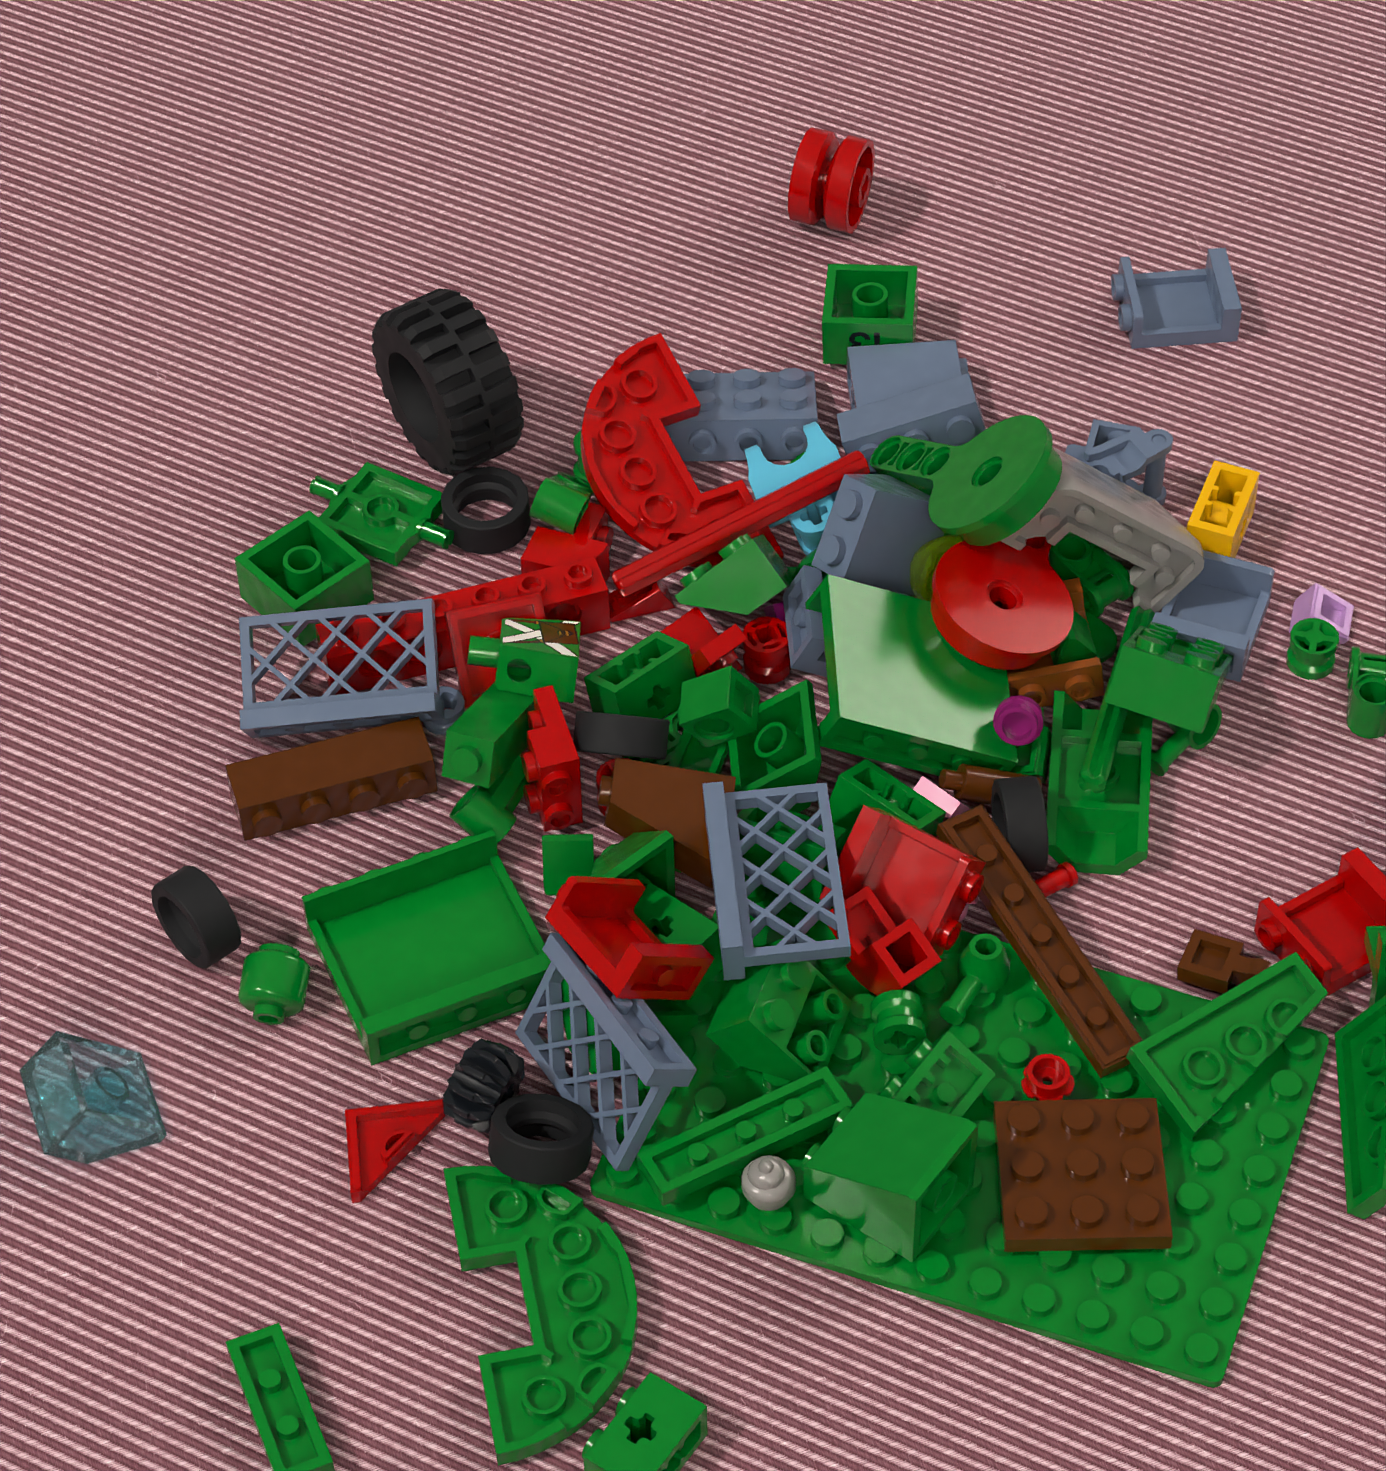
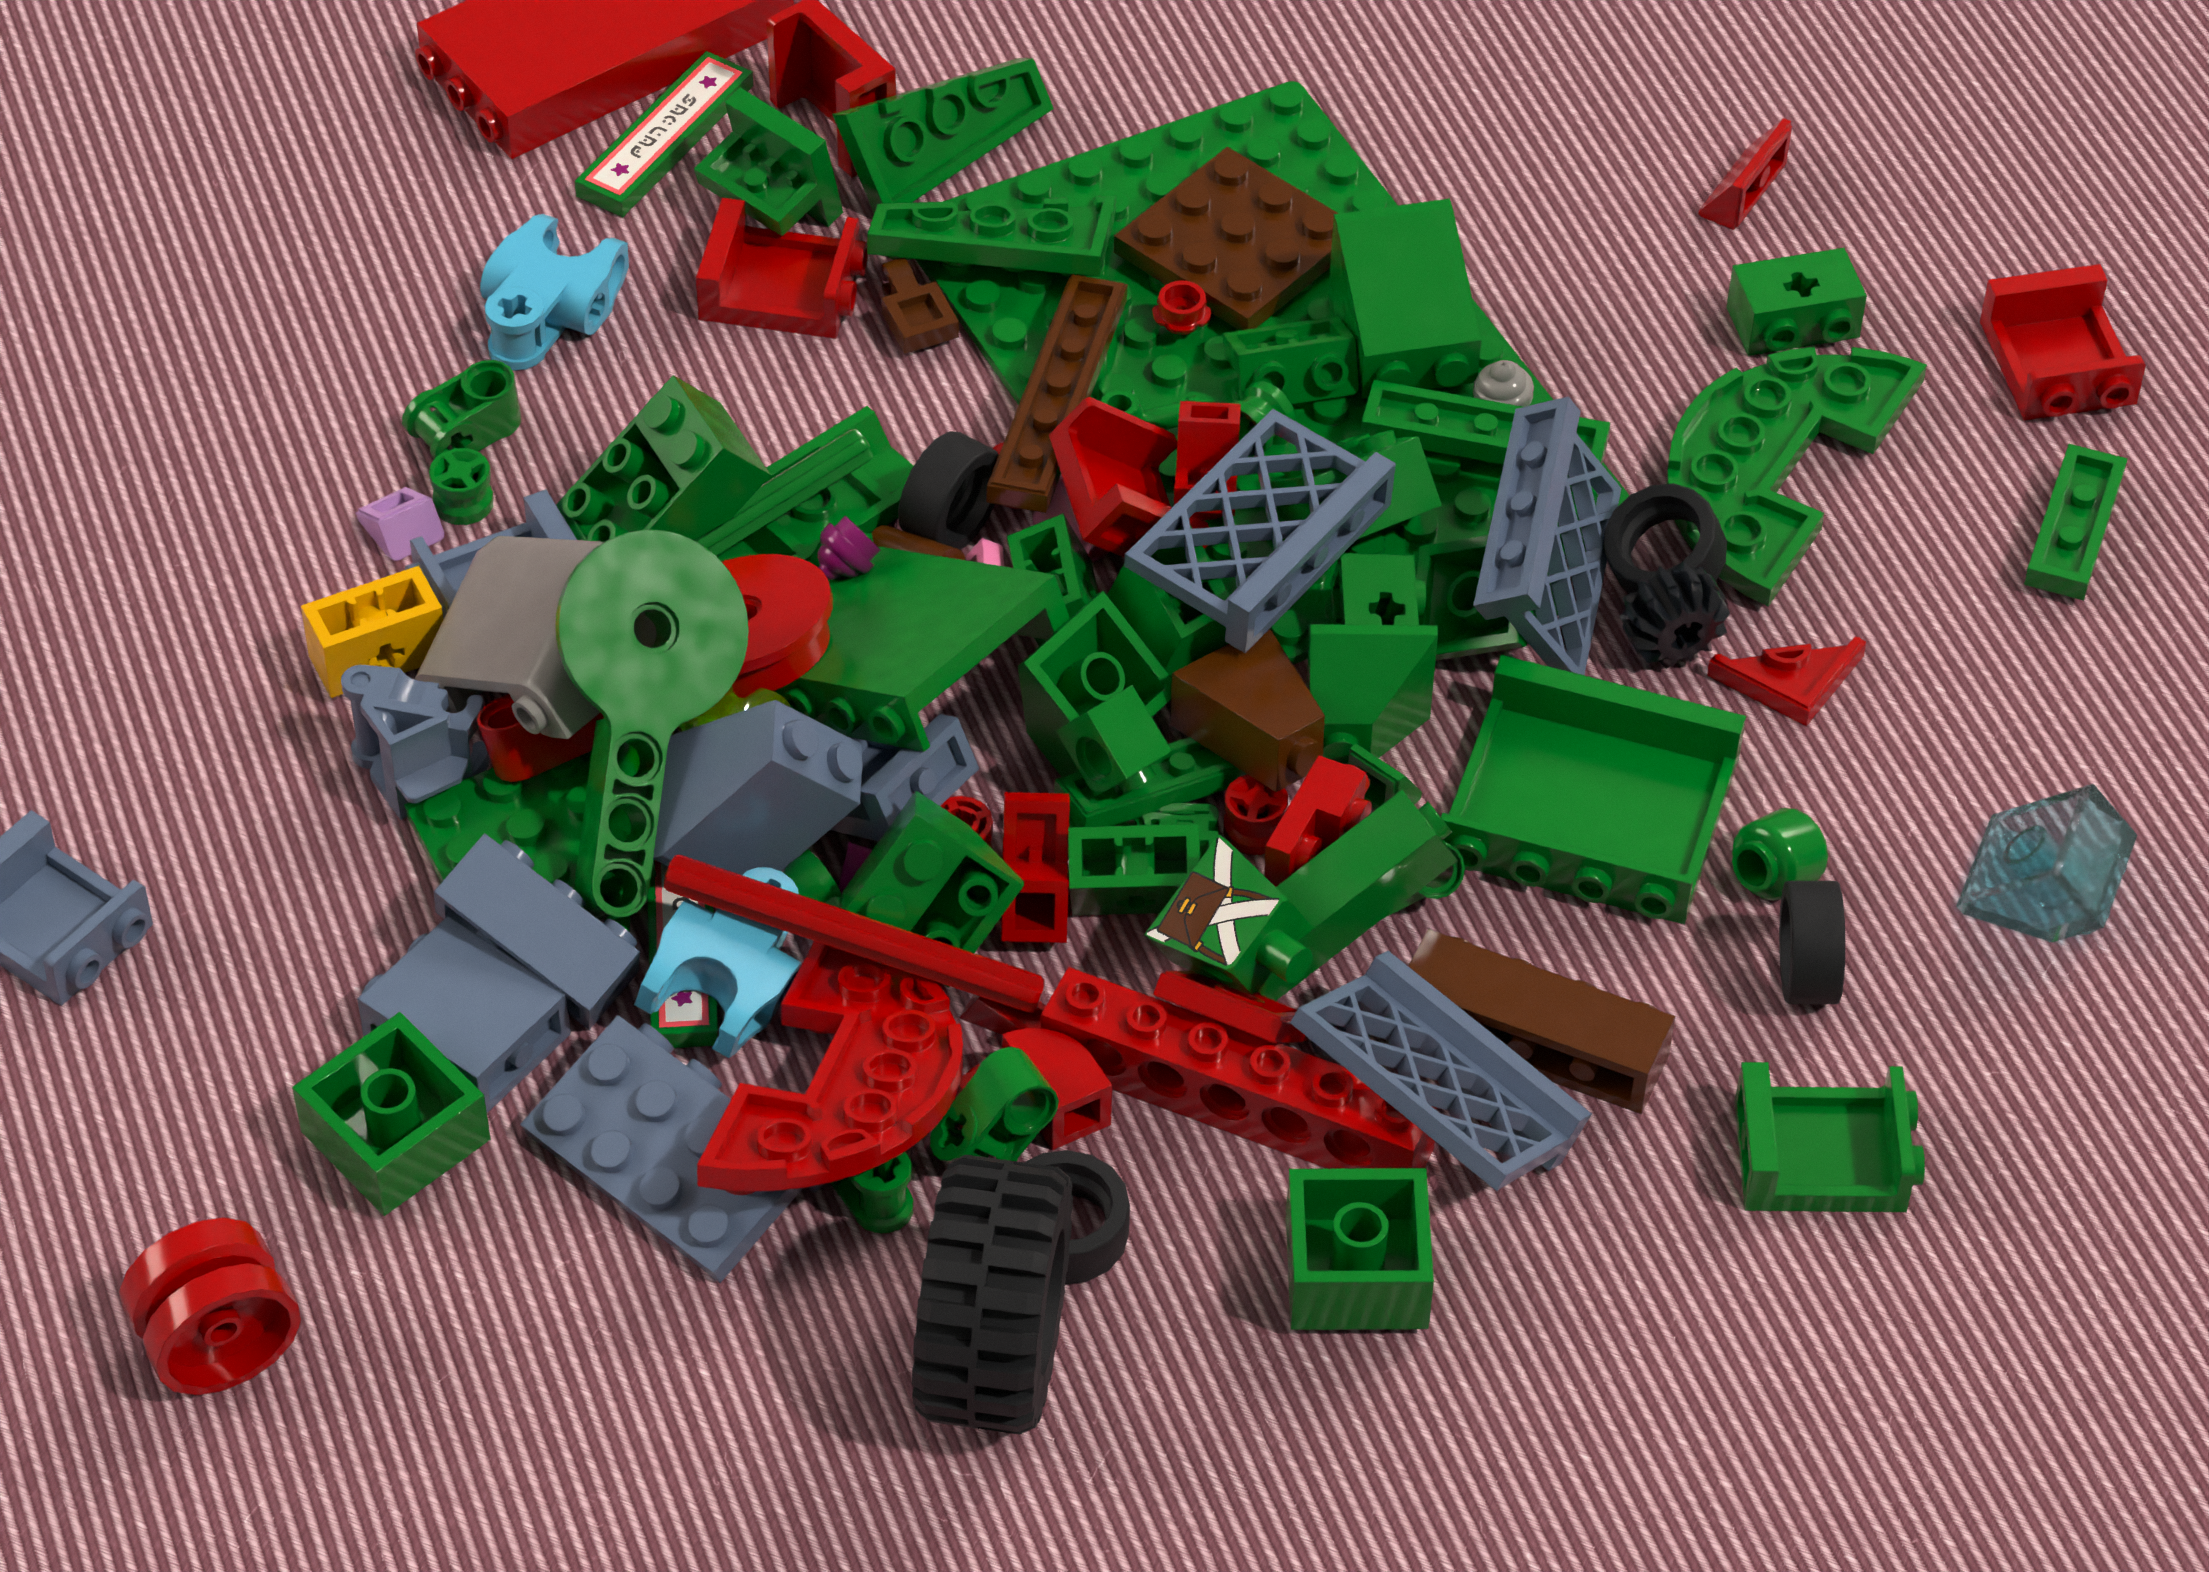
camera: 140 degrees left, 0 degrees up
(102, 833) = (1826, 1145): none -> green panel
(382, 512) = (1180, 1303): green plate -> none
(602, 928) = (1463, 549): red panel -> none
(621, 735) = (1196, 775): black tyre -> none

